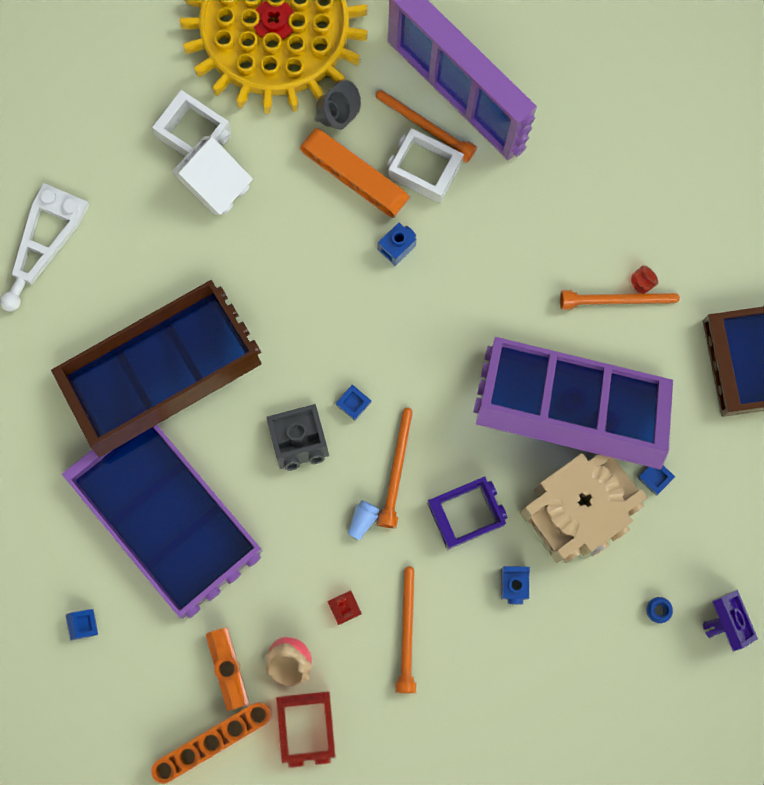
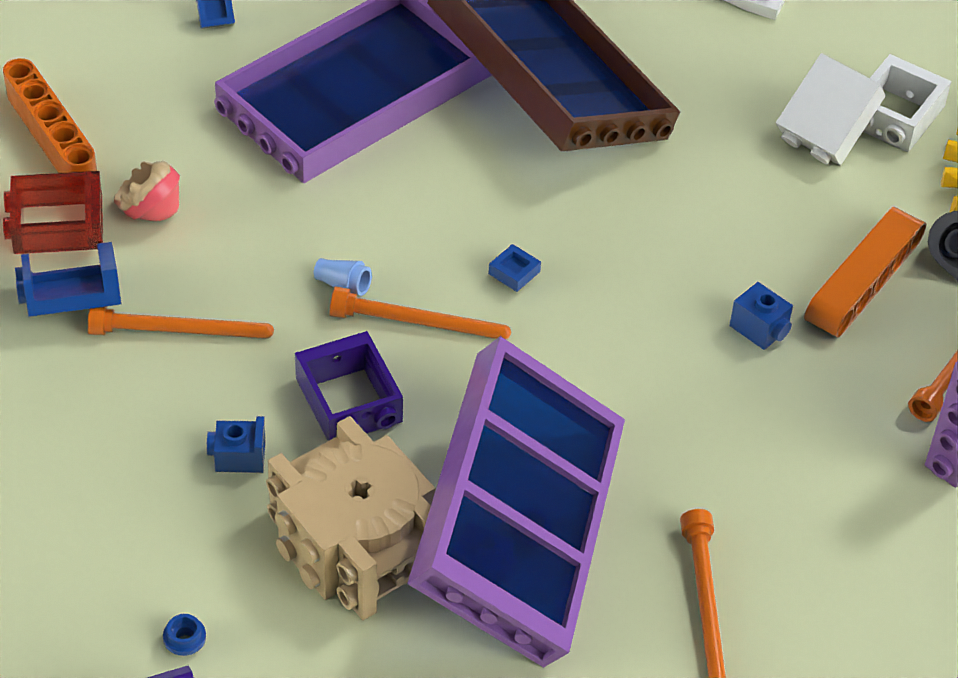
camera: 90 degrees right, 30 degrees down
(222, 651) = (144, 136): orange piece -> none
(298, 437) = (460, 205): dark grey plate -> none
(344, 607) = (218, 260): clear red tile -> none
(382, 709) = (69, 288): none -> blue panel
(416, 184) = (898, 382): white window -> none
(645, 277) = (746, 632): clear red tile -> none
(656, 479) = (404, 635): blue plate -> none

